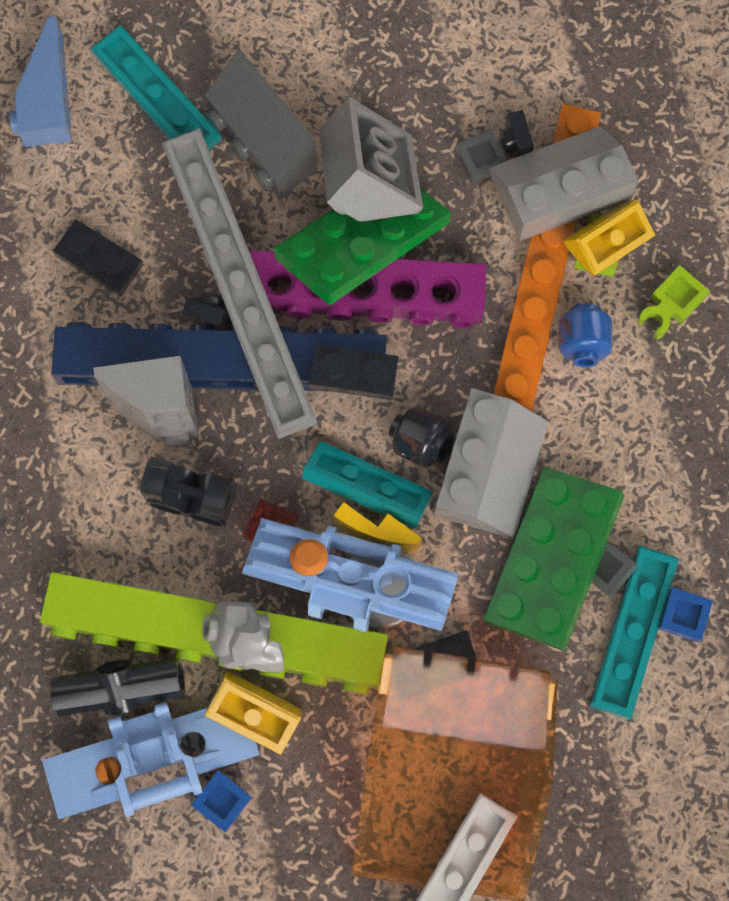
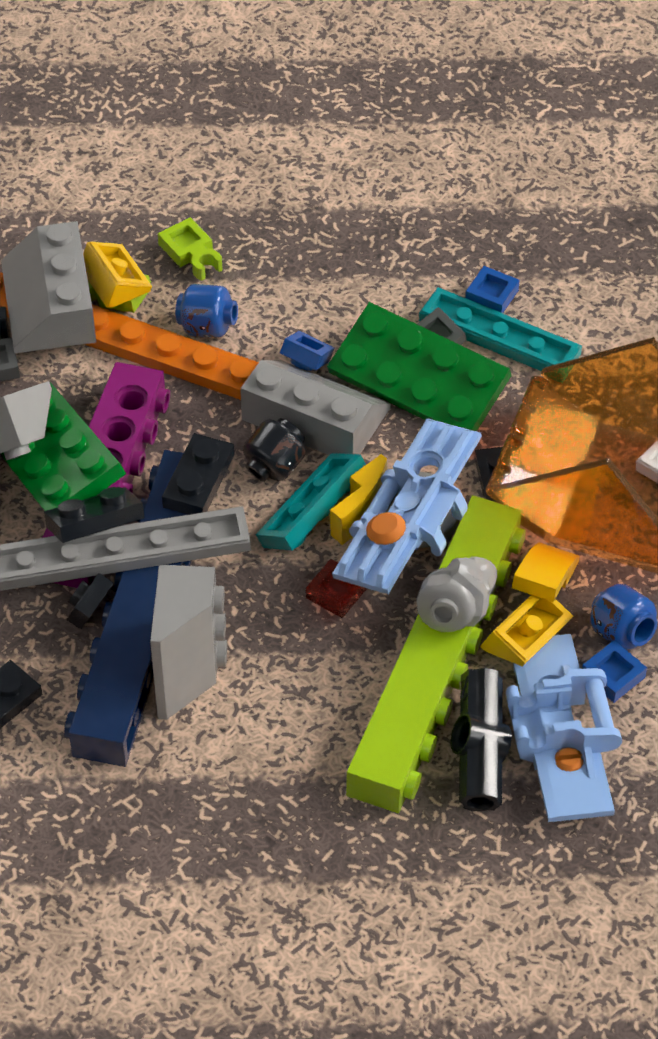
camera: 80 degrees left, 25 degrees down
(186, 493) = (280, 650): black piece -> none
(280, 288) = (95, 514): none -> black plate
(282, 803) = (624, 616): none -> blue head
(324, 720) = (545, 571): none -> yellow slope
(557, 443) = (306, 351): none -> blue plate

